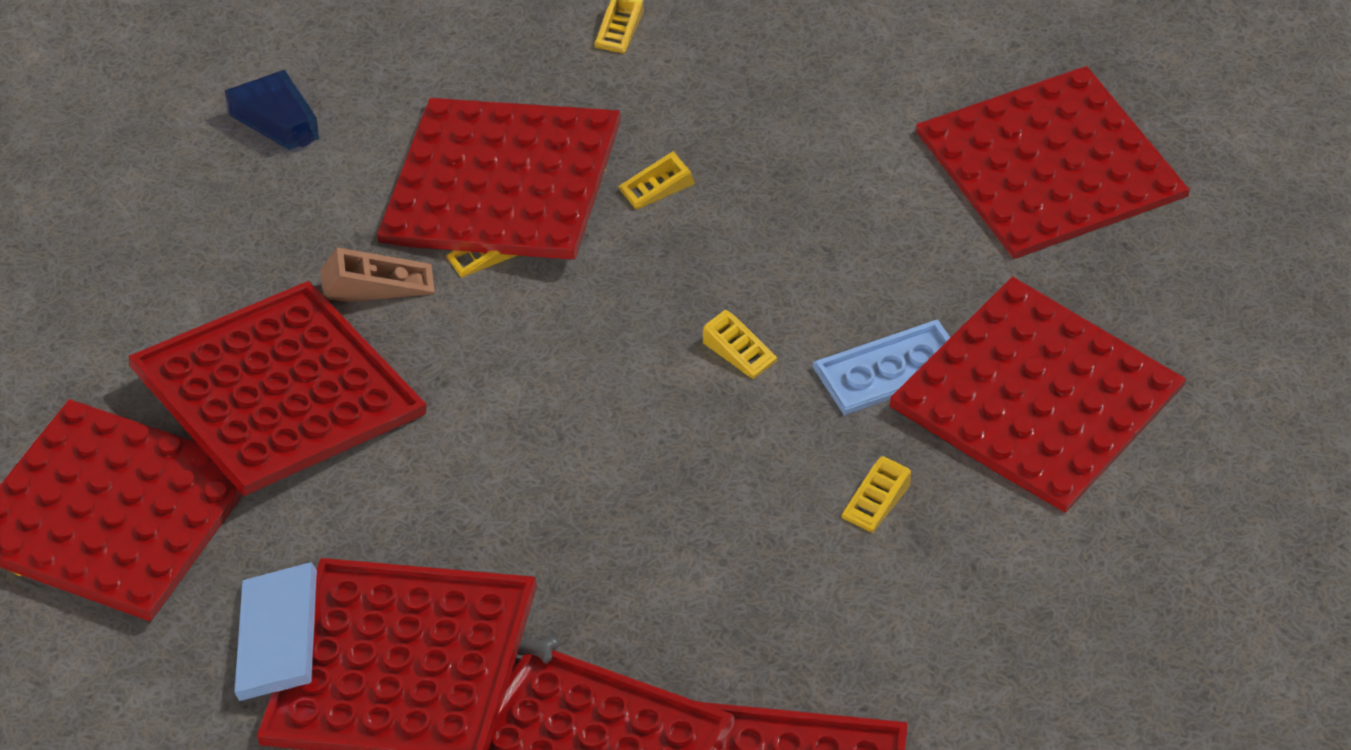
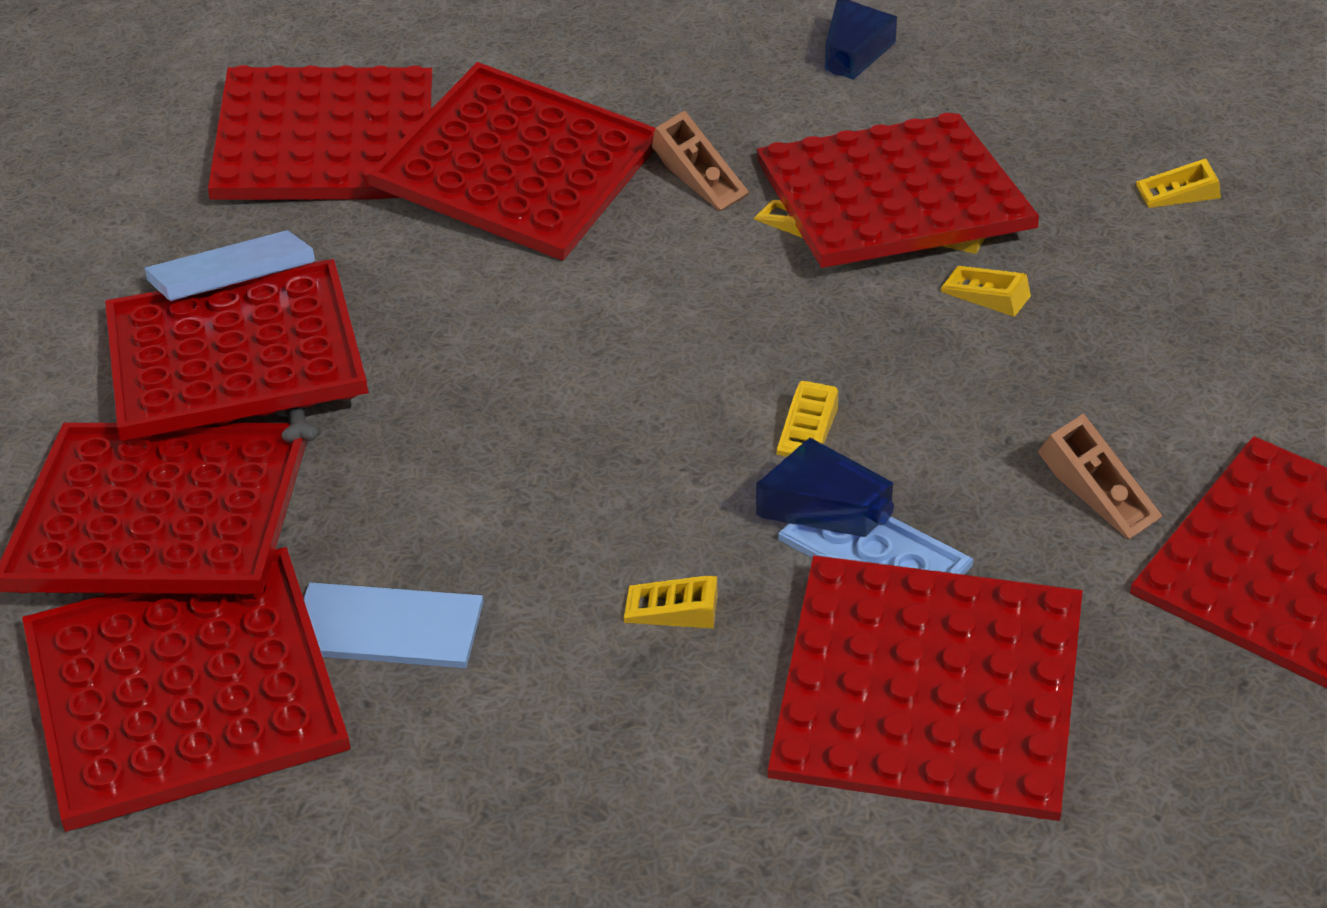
camera: 65 degrees right, 5 degrees down
(794, 662) = (393, 624): none -> light blue tile
(836, 360) = (825, 492): none -> clear blue slope
(901, 217) = (1098, 477): none -> nougat slope

